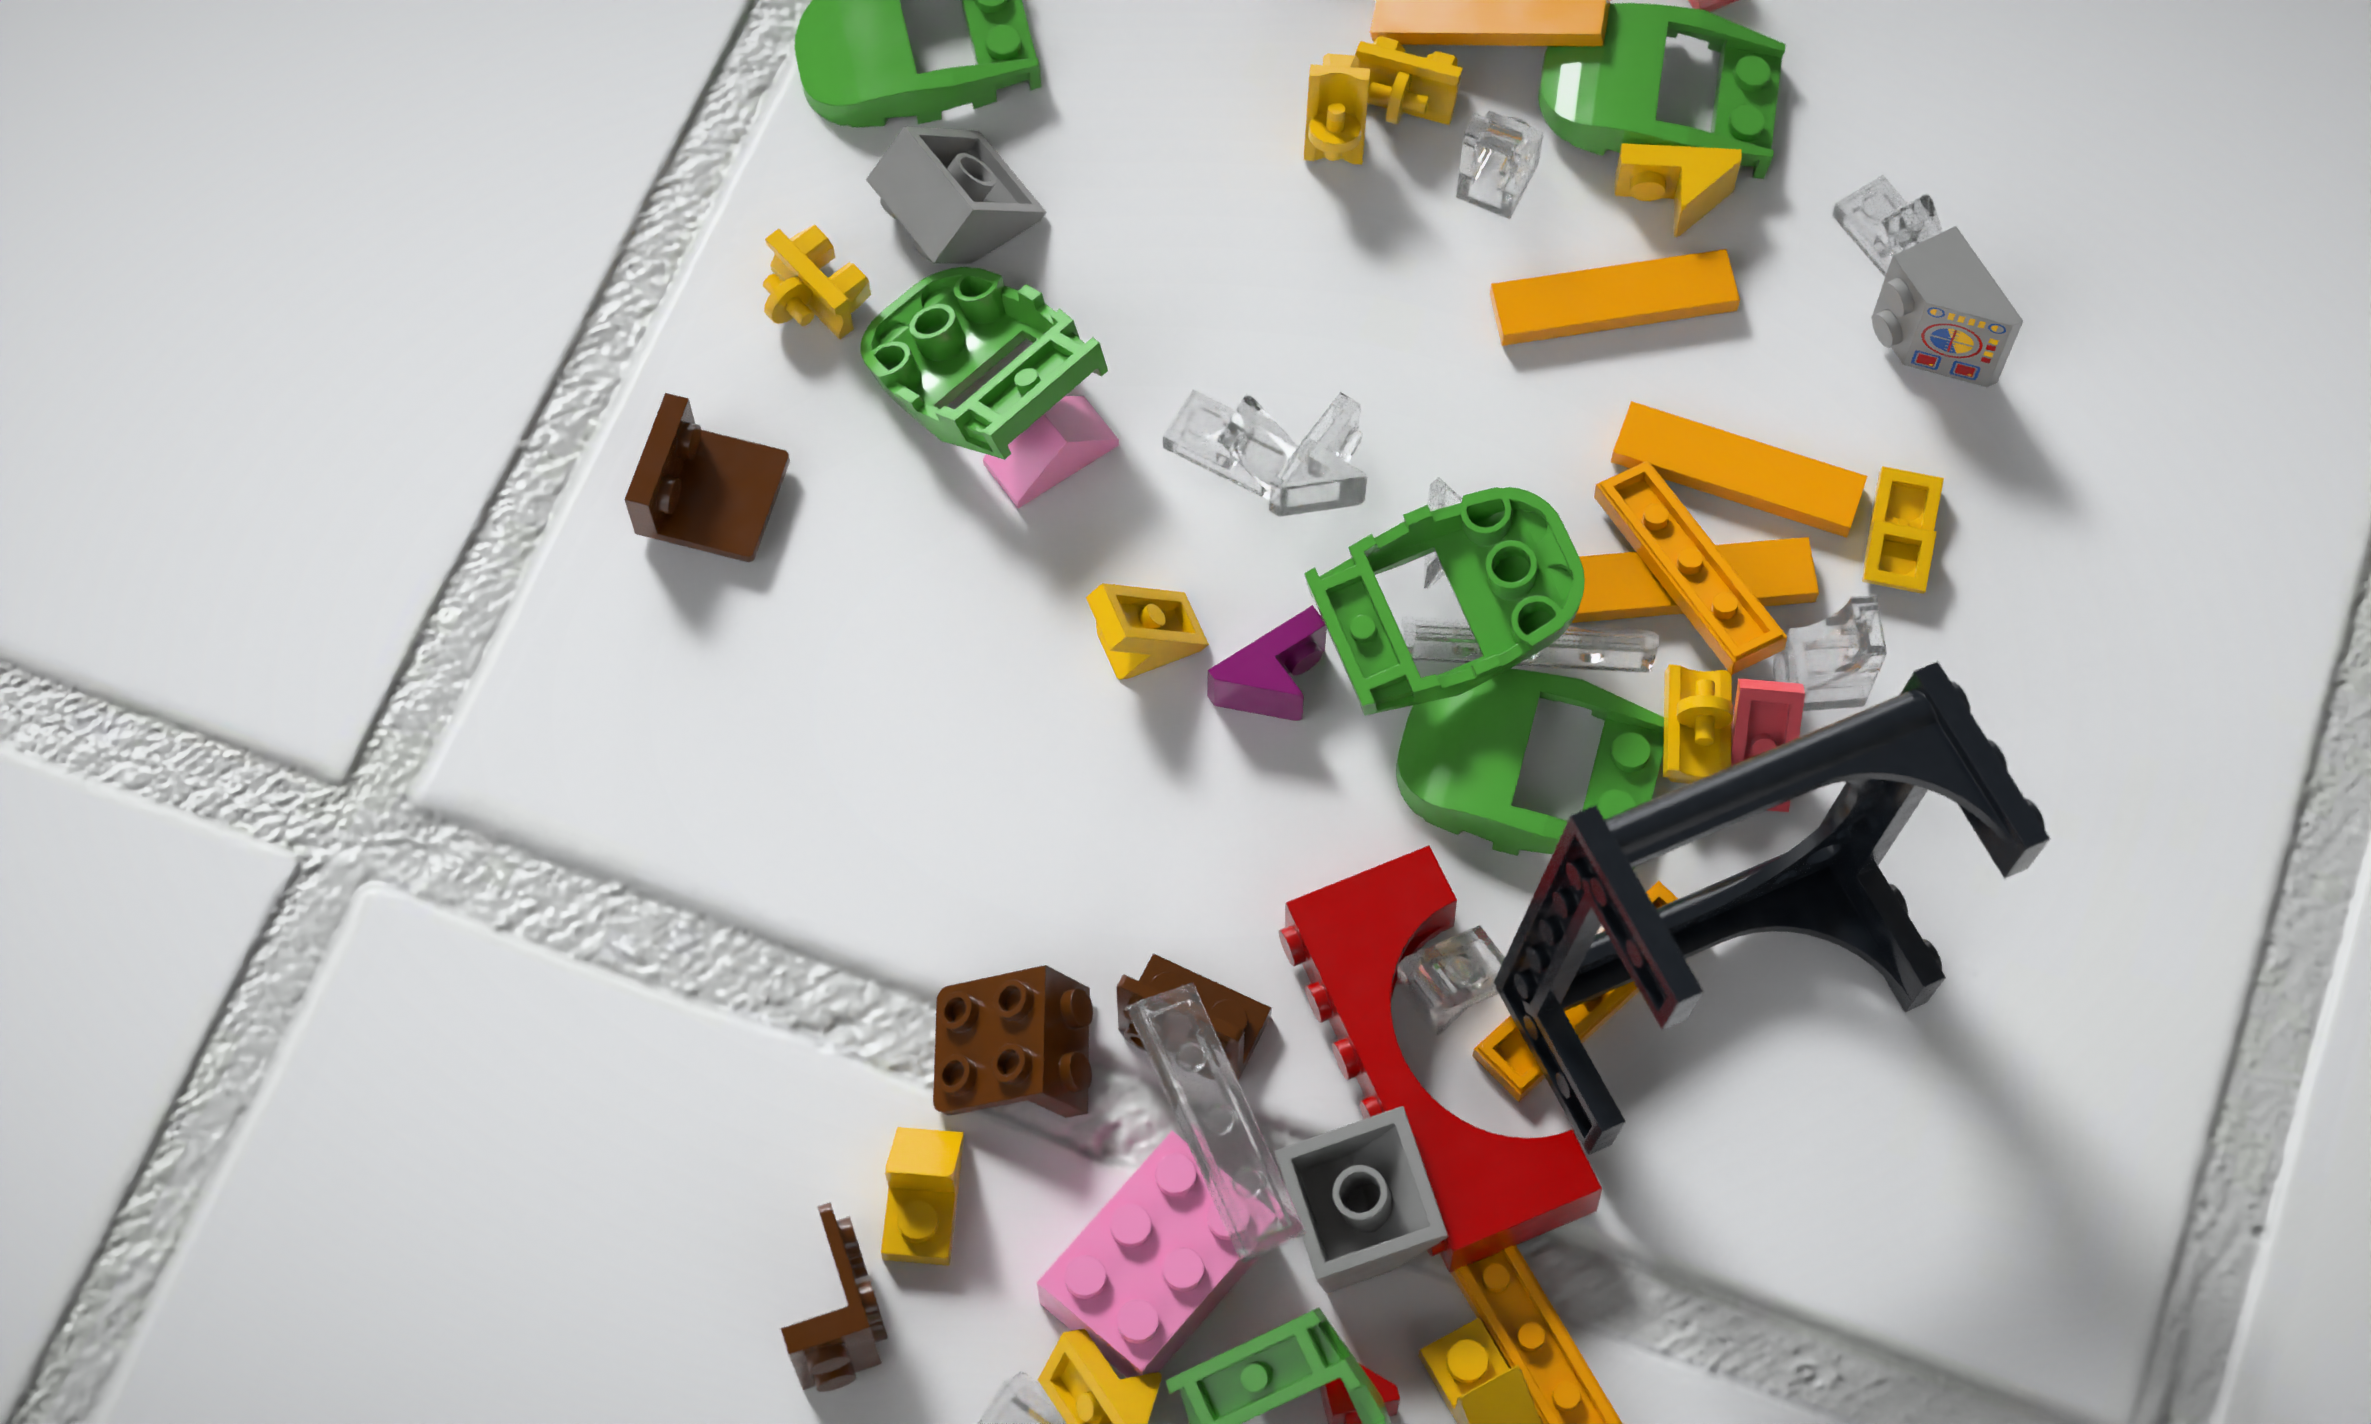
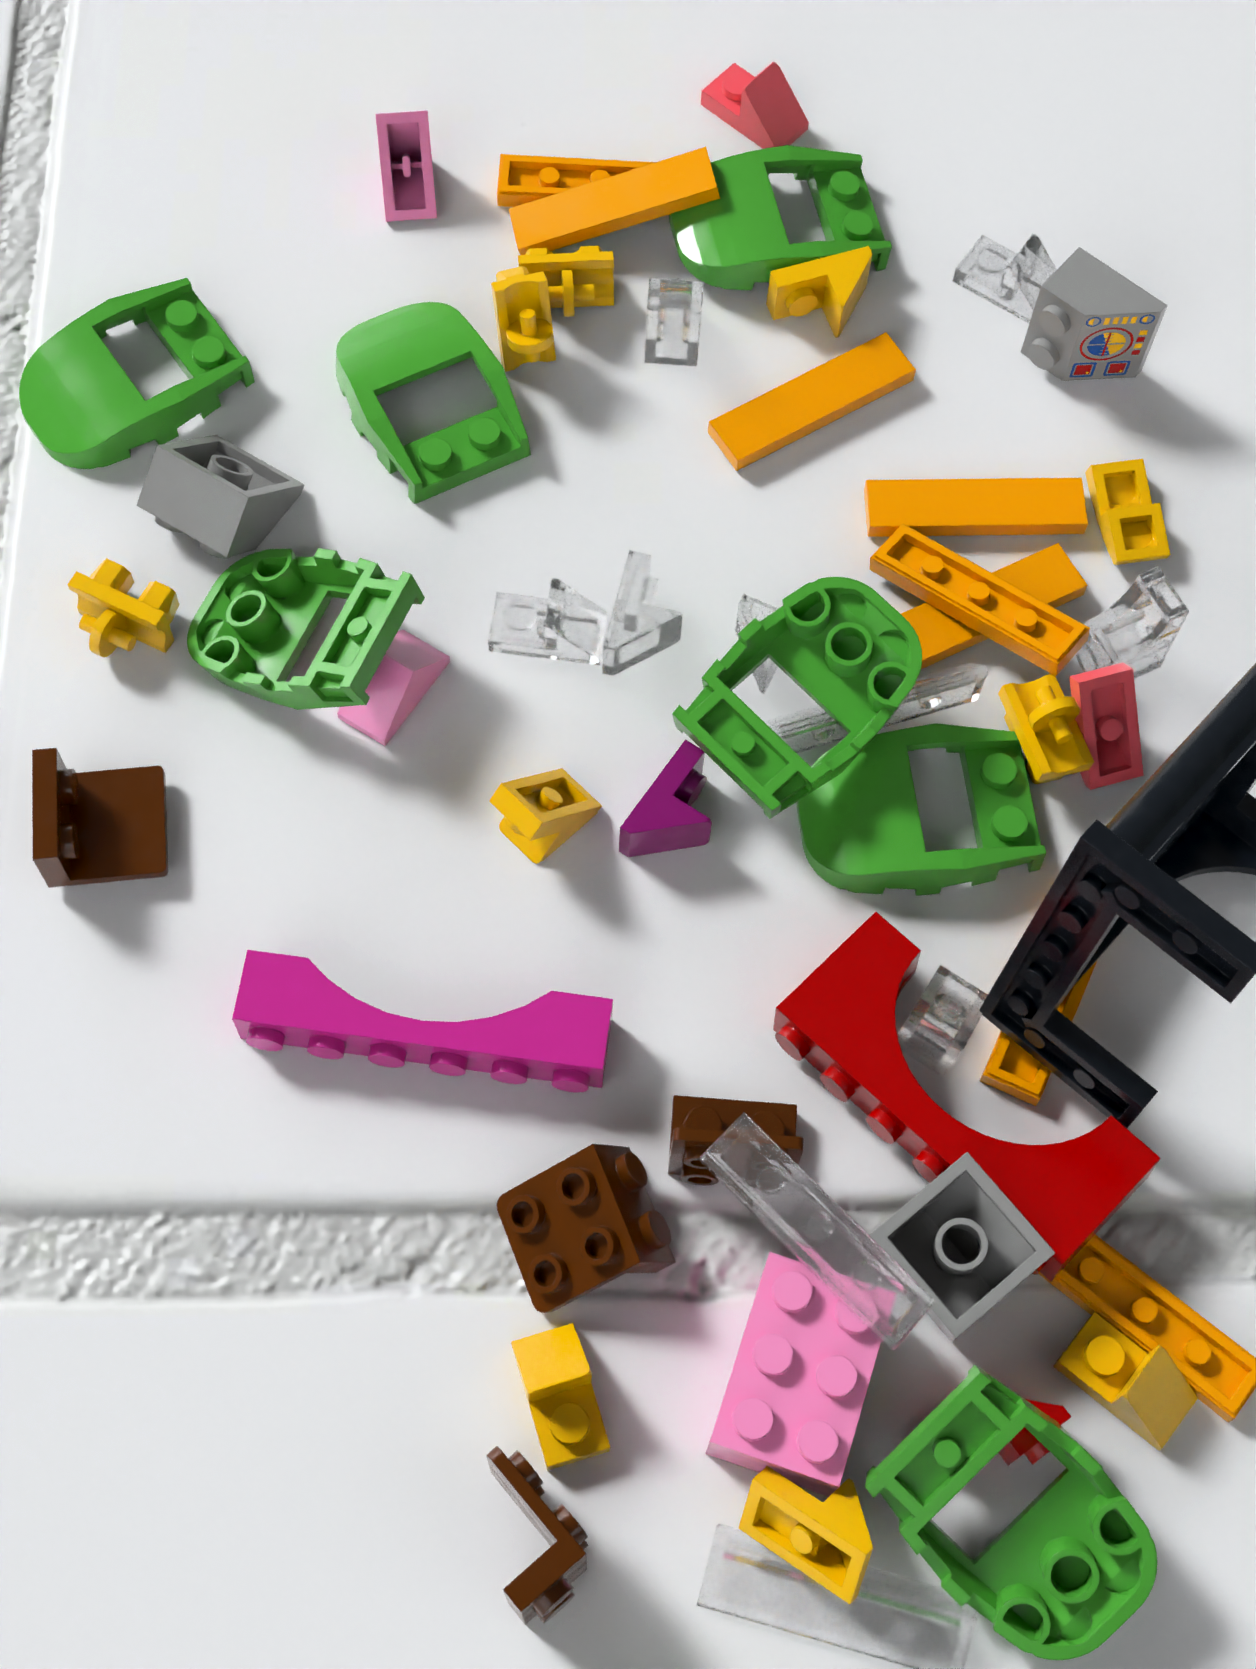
camera: 25 degrees left, 0 degrees up
(1051, 852) = (550, 1039): none -> dark pink arch
(1204, 102) = (410, 346): none -> bright green slope

